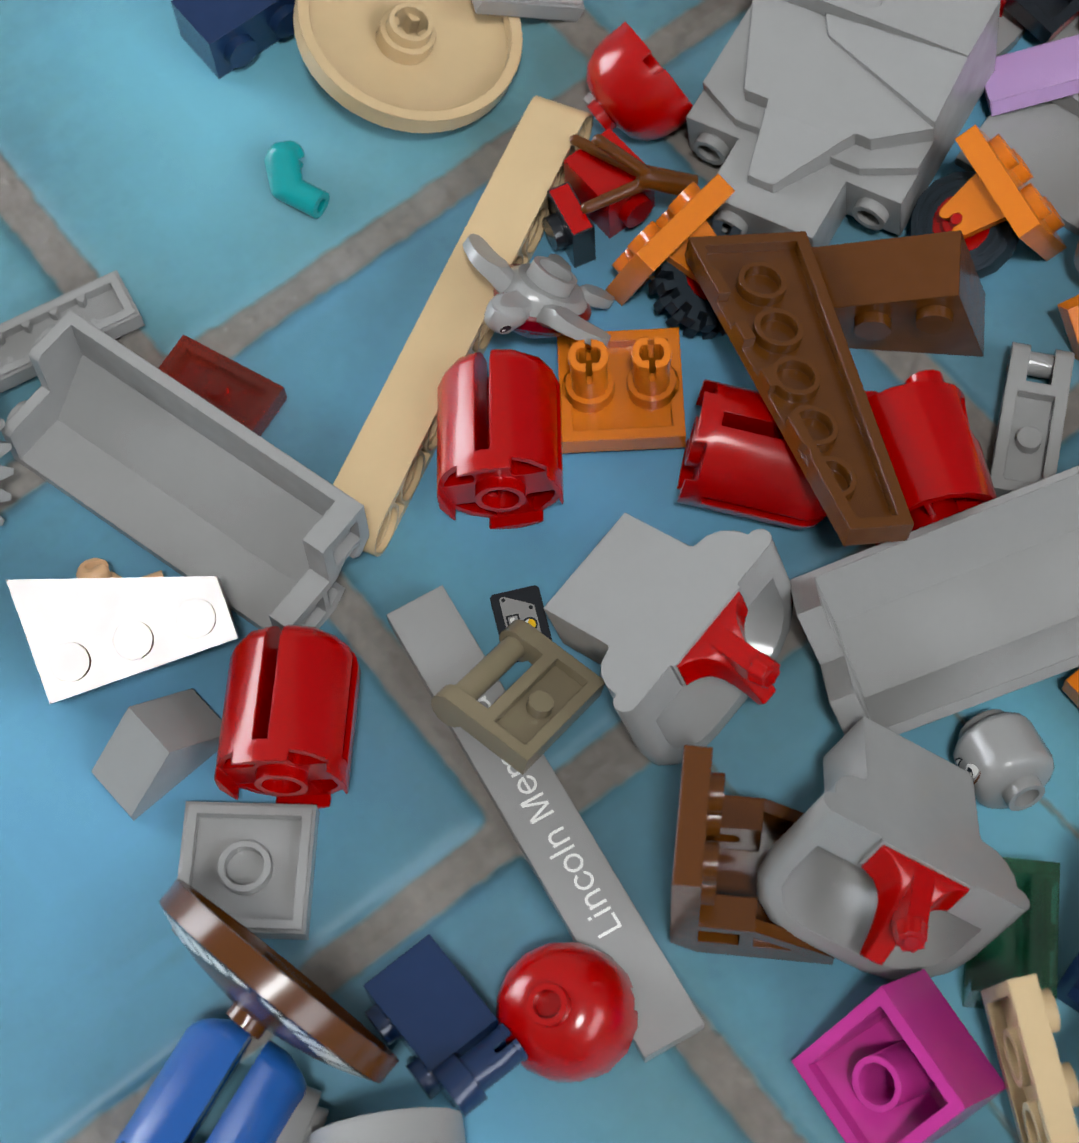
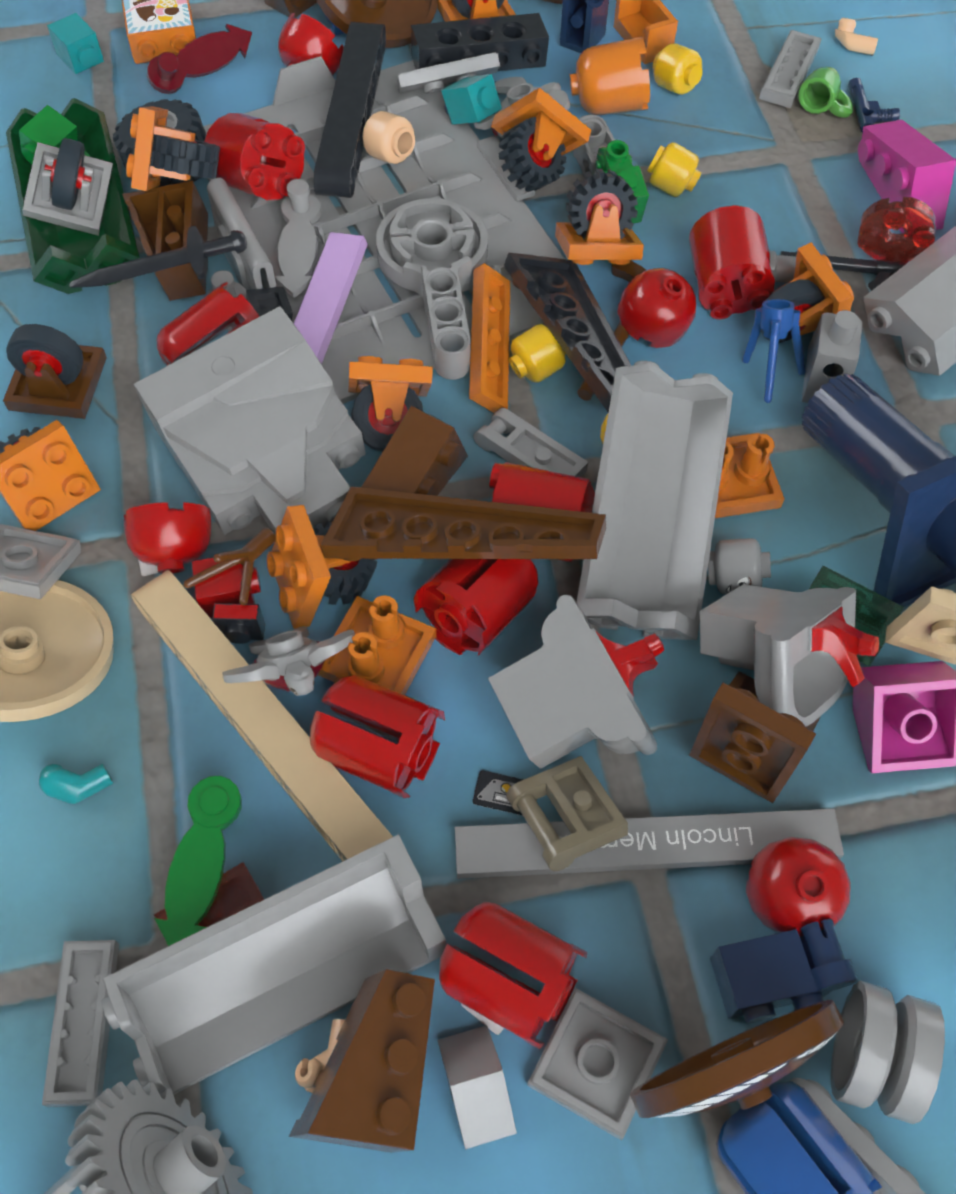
camera: 70 degrees left, 5 degrees down
(261, 341) = (199, 858): none -> green brick

